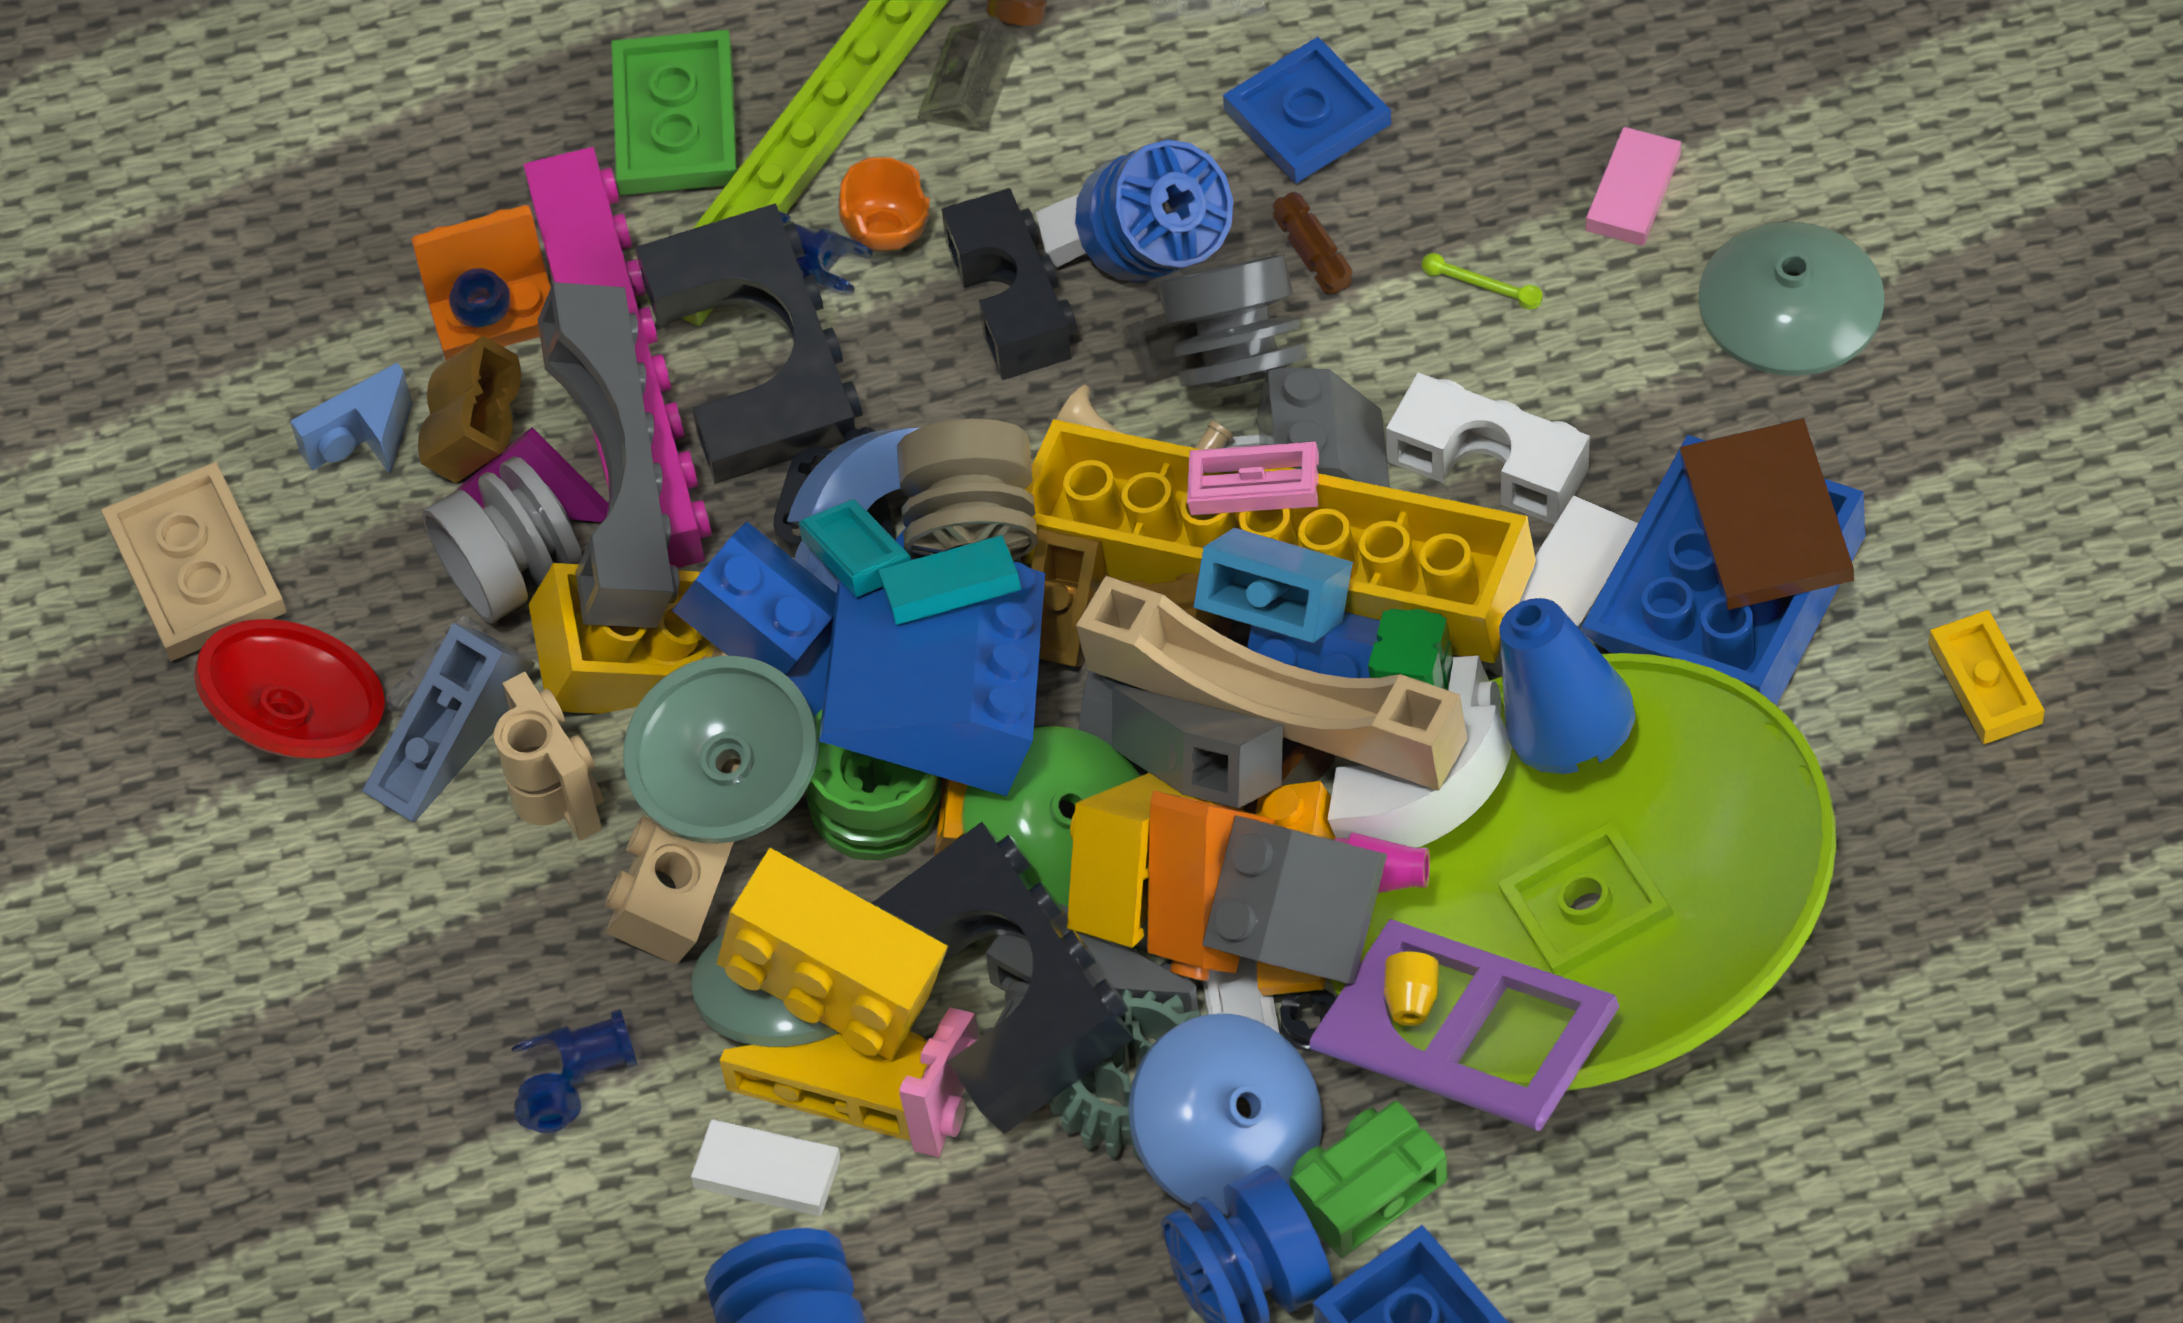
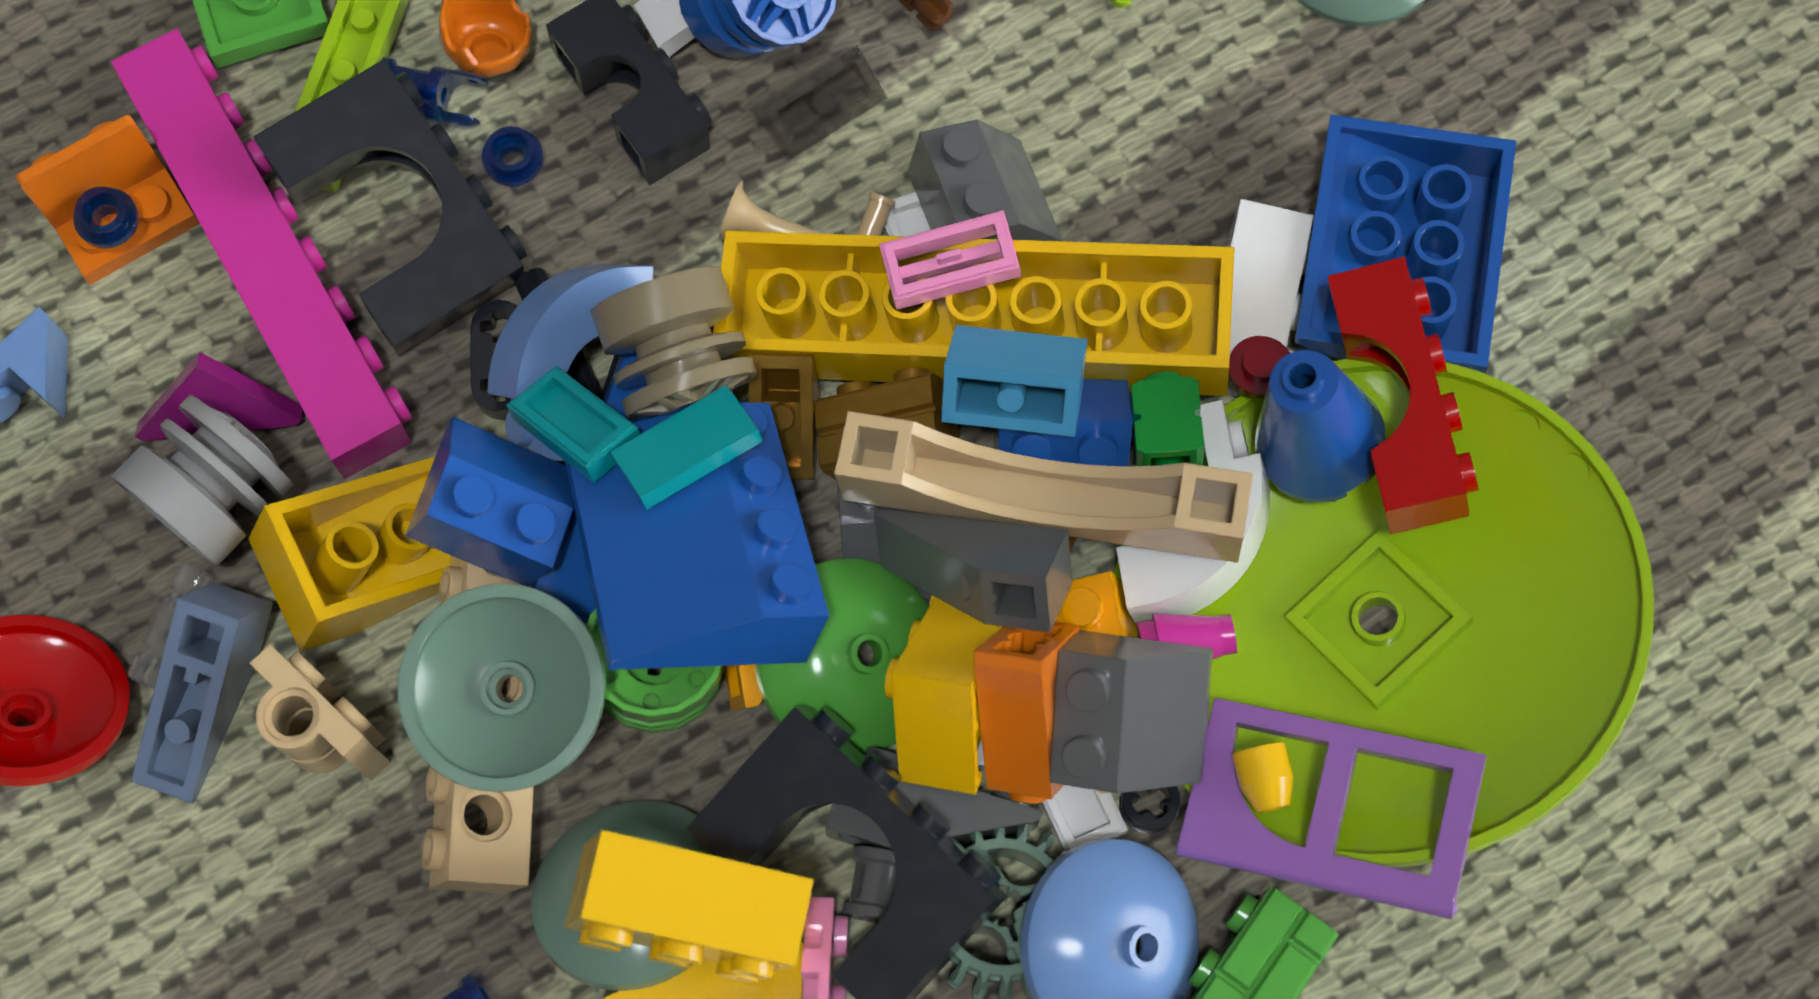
camera: 25 degrees left, 15 degrees up
(469, 409) = (128, 339): pearl gold brick -> none
(591, 352) = (239, 260): dark grey arch -> none
(871, 312) = (510, 140): none -> clear blue plate
(1232, 321) = (873, 99): dark grey wheel -> none
(1445, 423) = (1187, 159): white arch -> none
(1646, 741) = (1418, 465): none -> red arch
(1766, 514) = (1439, 185): reddish brown tile -> none
(1986, 677) = (1659, 294): yellow plate -> none

